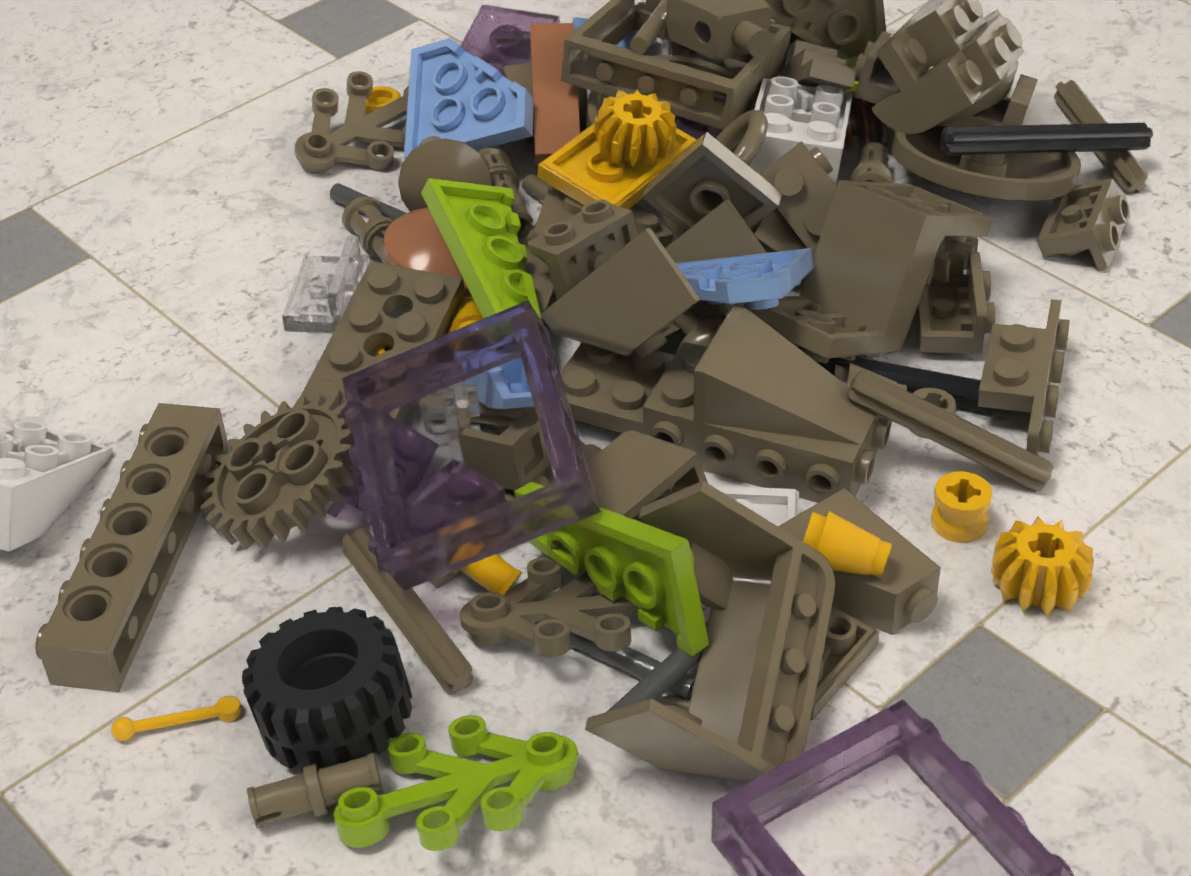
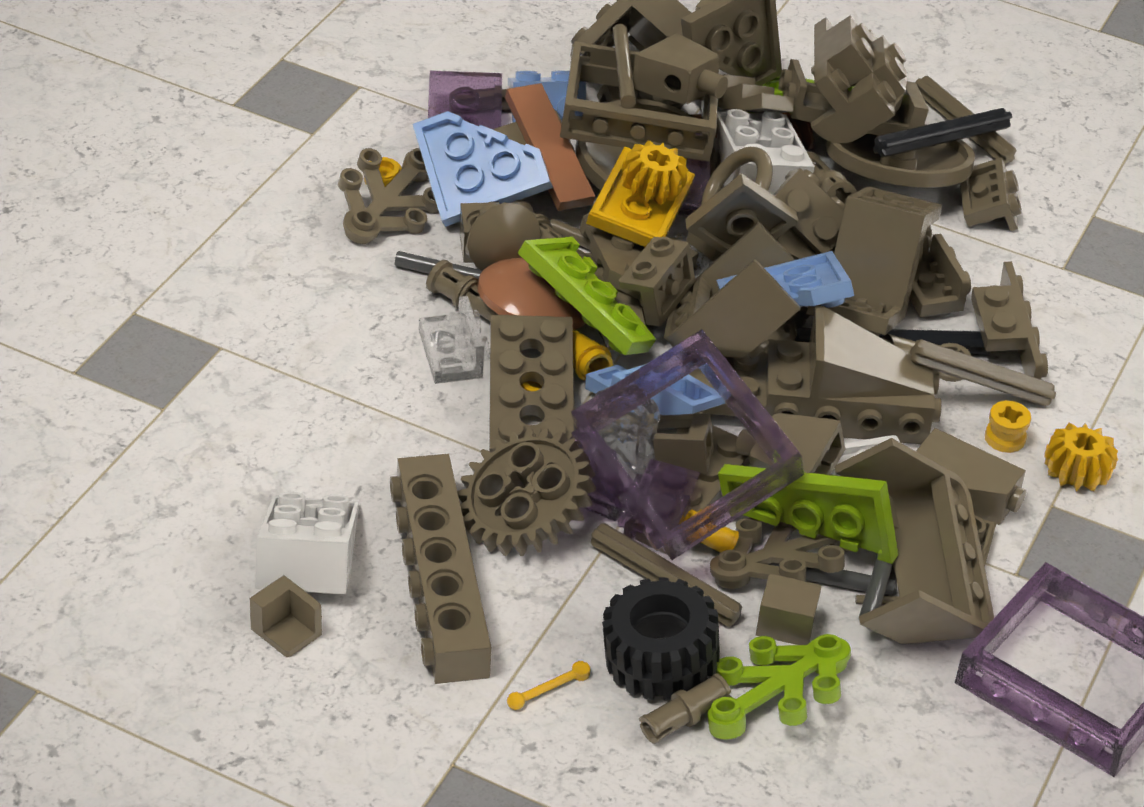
camera: 25 degrees left, 0 degrees up
(518, 684) = (788, 609): none -> dark tan panel
(847, 545) = (969, 466): yellow cone -> none

